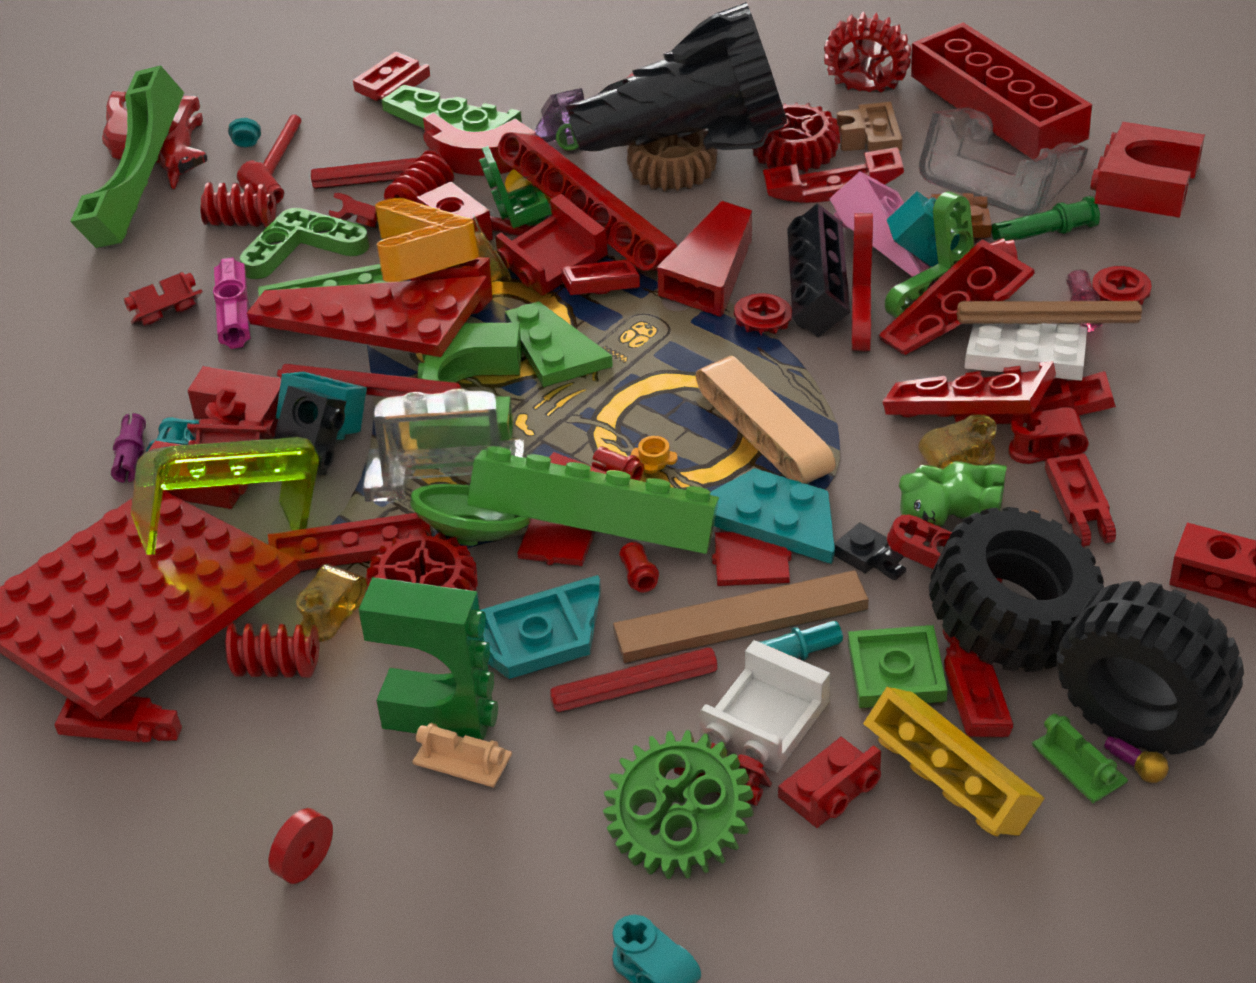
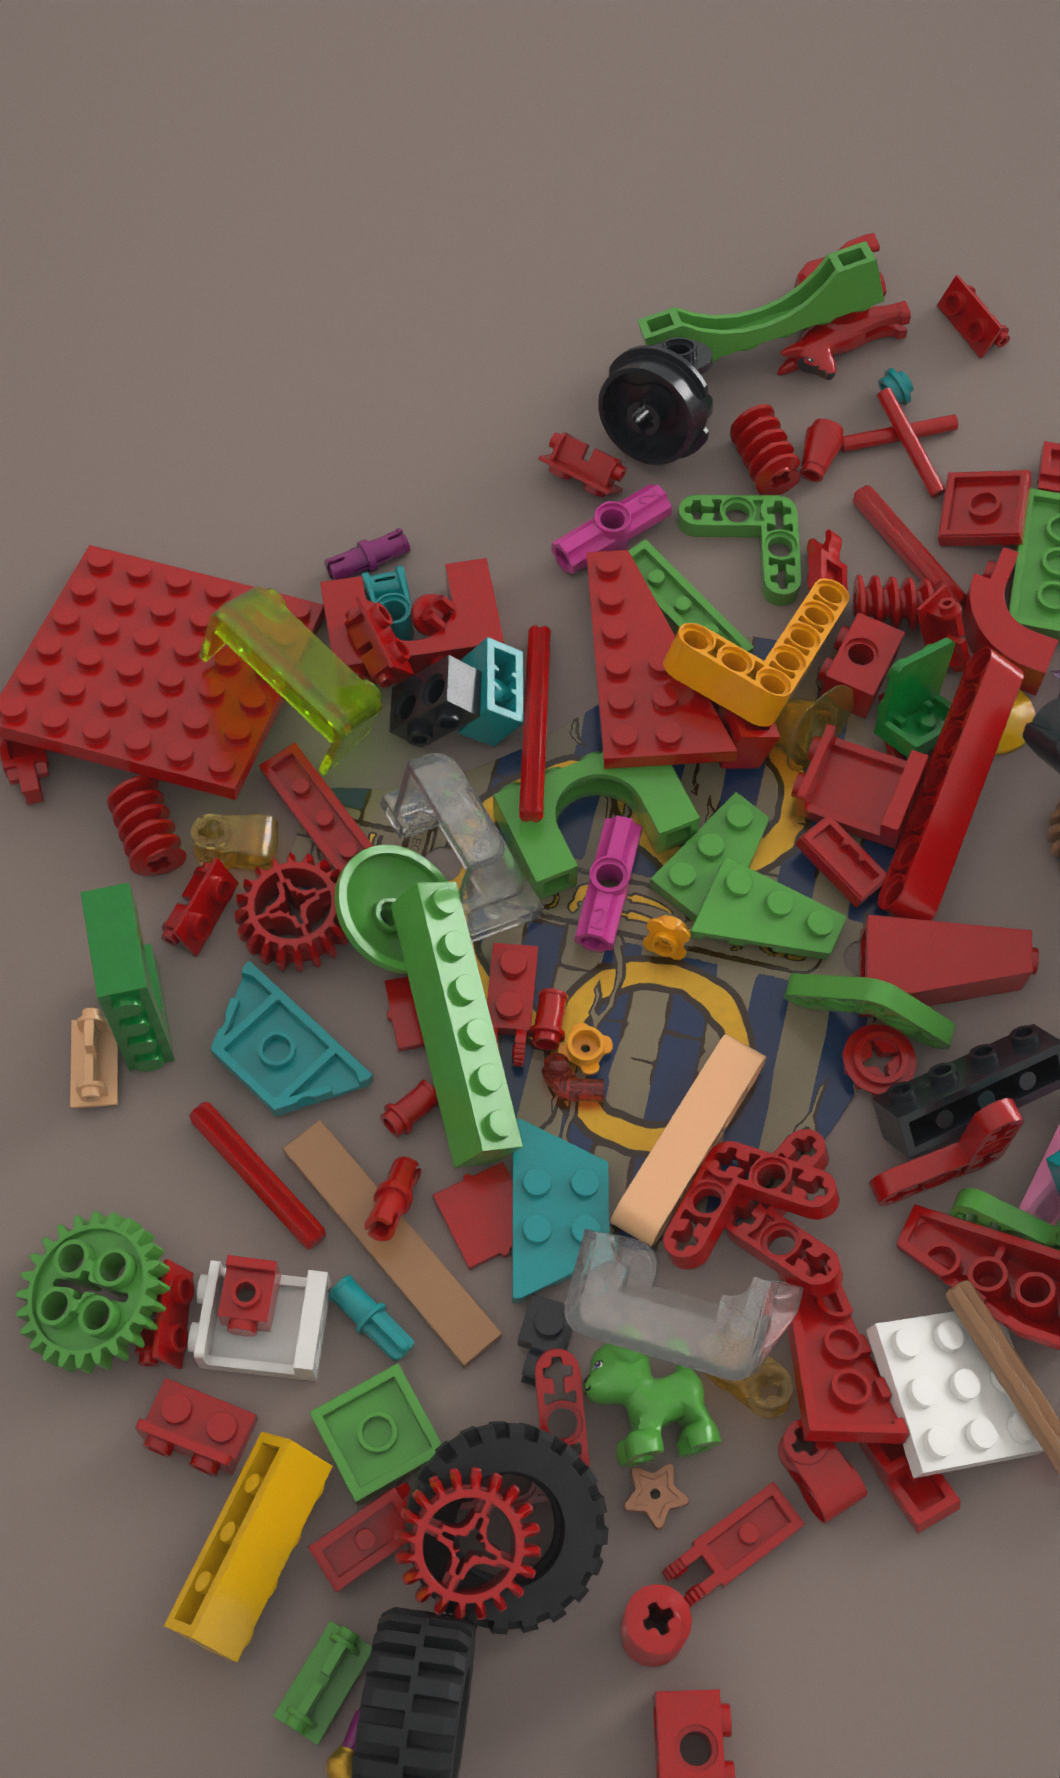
camera: 60 degrees right, 20 degrees up
(158, 227) = (658, 400): none -> black piece
(221, 80) = (972, 317): none -> red hinge
(296, 139) = (911, 443): none -> red bar
(375, 657) = (208, 896): none -> red hinge
(379, 124) = (985, 508): none -> red plate
(458, 154) = (942, 618): none -> red hinge
(532, 396) = (601, 904): none -> dark pink piece
(596, 380) = (667, 937): none -> light orange plate
(613, 326) = (763, 912): none -> bright green wing
(681, 472) = (567, 1085): none -> clear red arm
(713, 588) = (393, 1199): none -> red pin
(730, 270) = (875, 998): none -> bright green beam
(743, 694) = (258, 1313): none -> red brick
(818, 404) = (733, 1184): none -> red beam
(855, 398) = (771, 1224): none -> red beam
(936, 409) = (618, 1304): none -> clear windscreen
(1033, 576) = (457, 1568): none -> red gear
(1127, 540) = (660, 1604): none -> red piece

